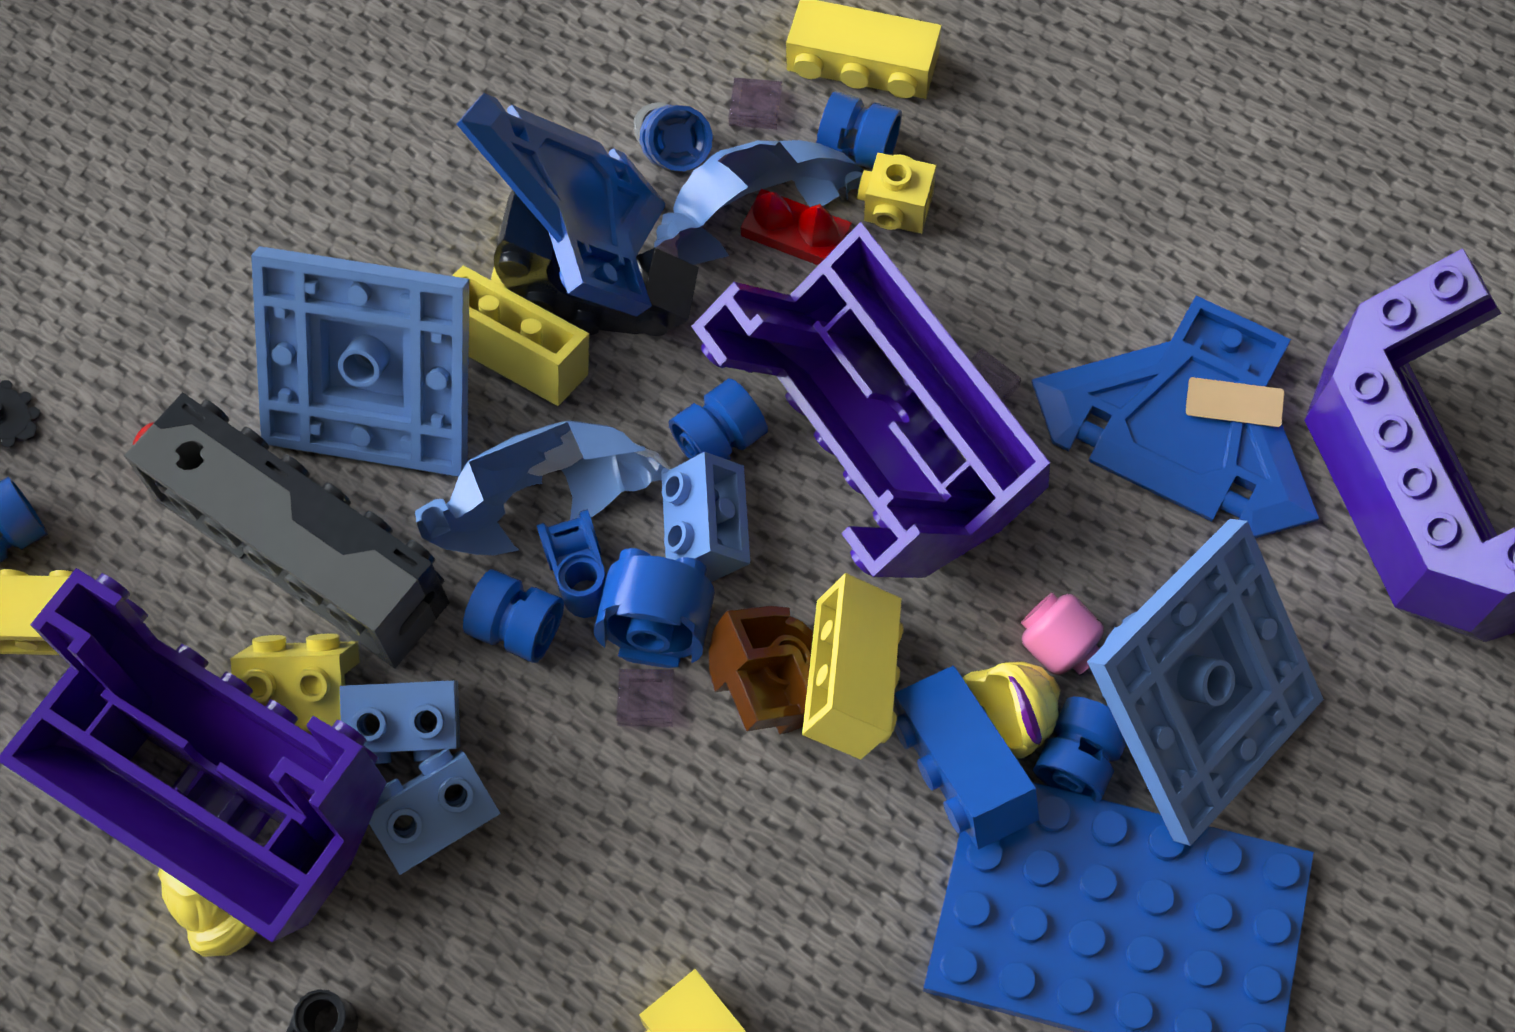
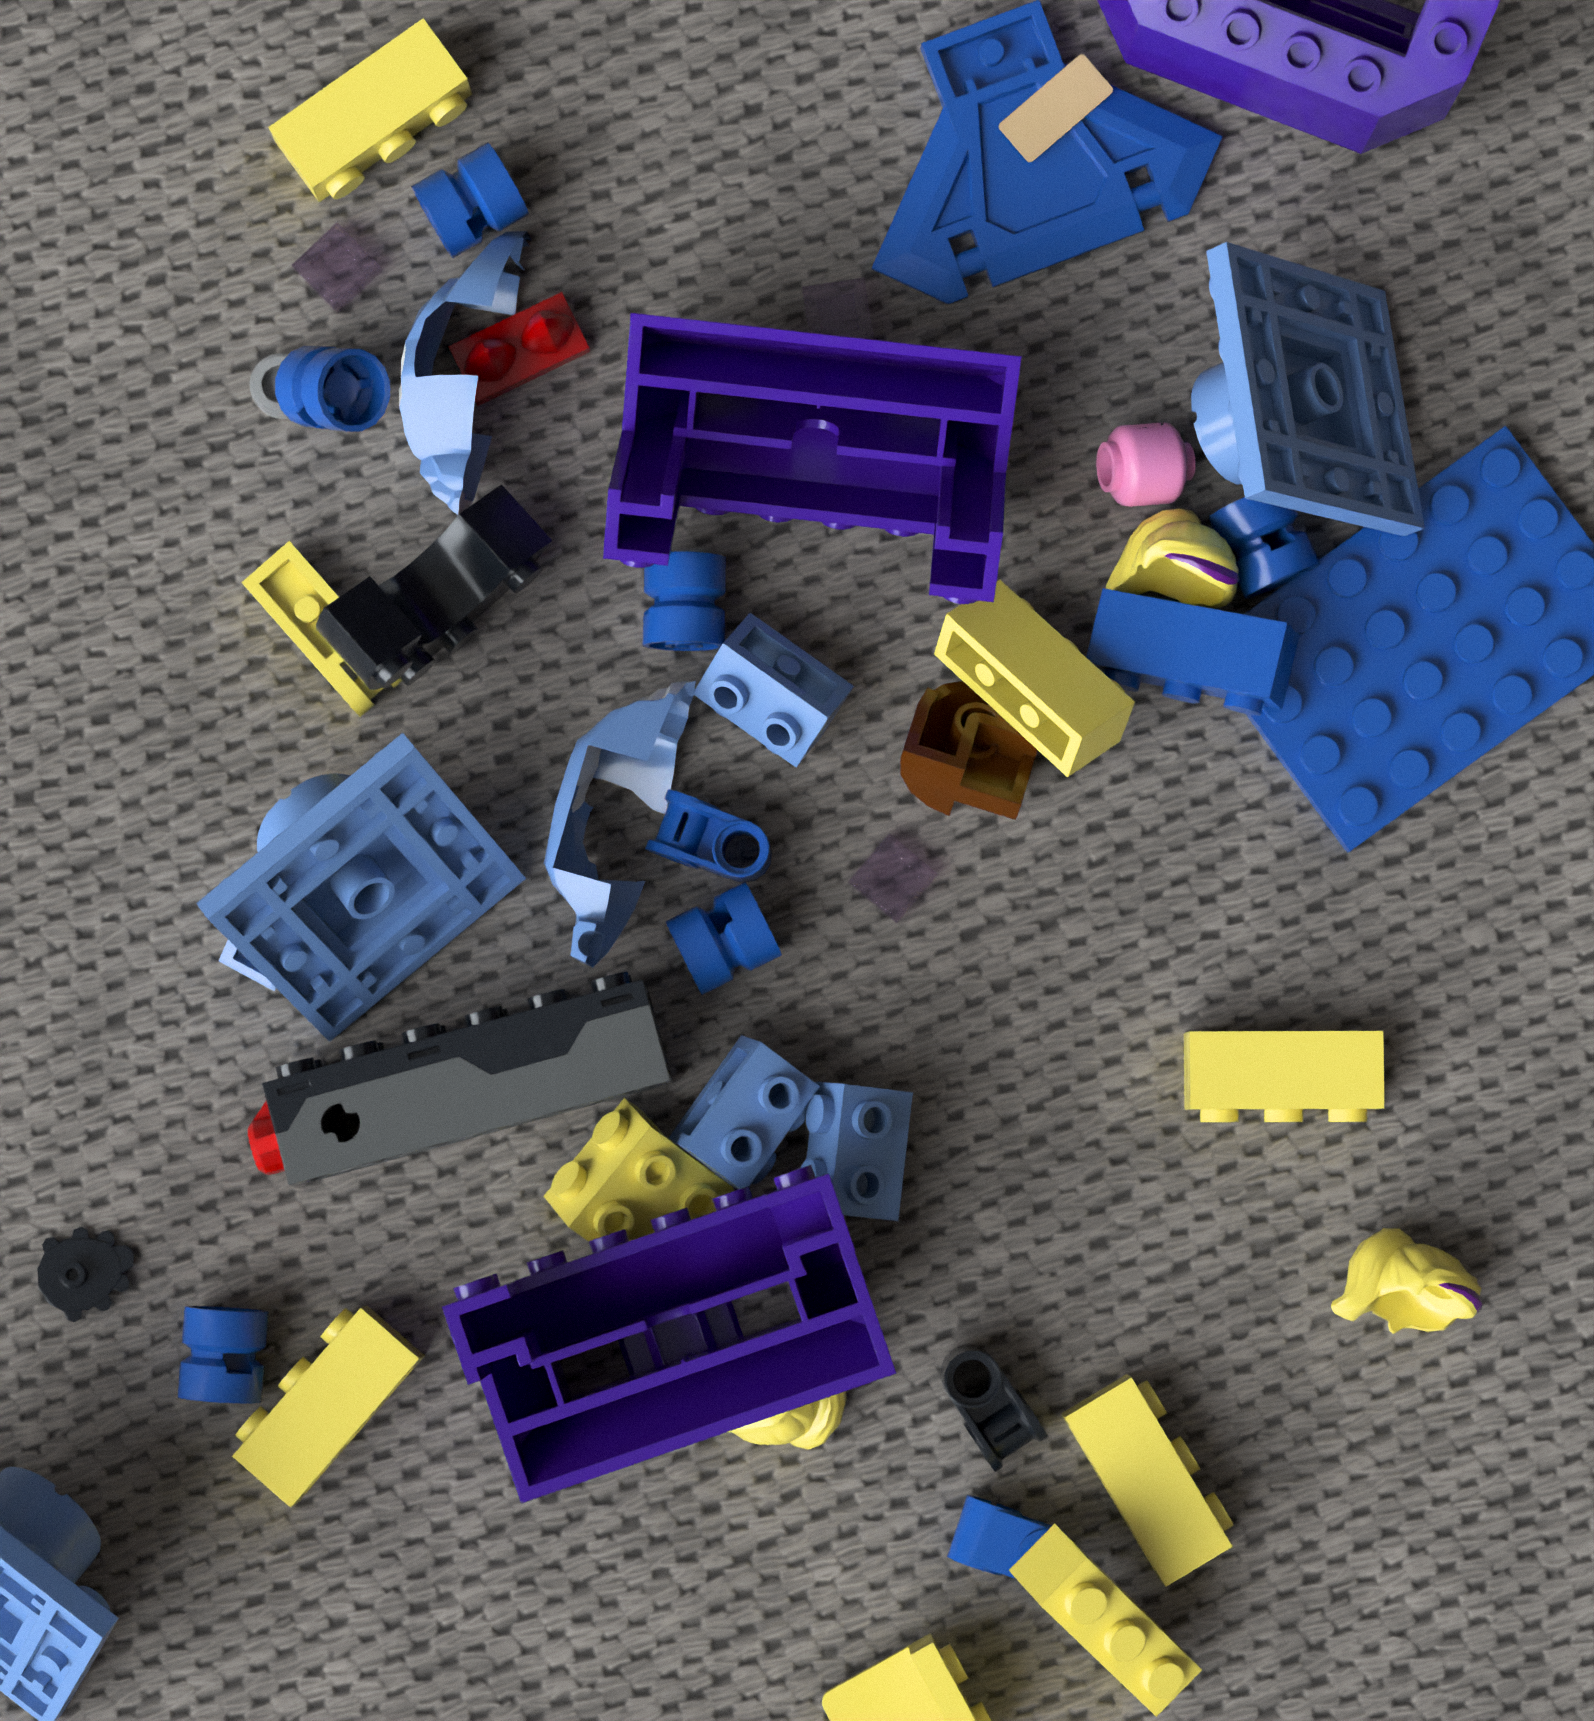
camera: 55 degrees left, 20 degrees up
(524, 340) = (438, 712): light yellow brick -> none
(583, 196) = (362, 547): blue plate -> none
(655, 608) = (828, 806): blue brick -> none
(897, 192) = (575, 201): light yellow brick -> none

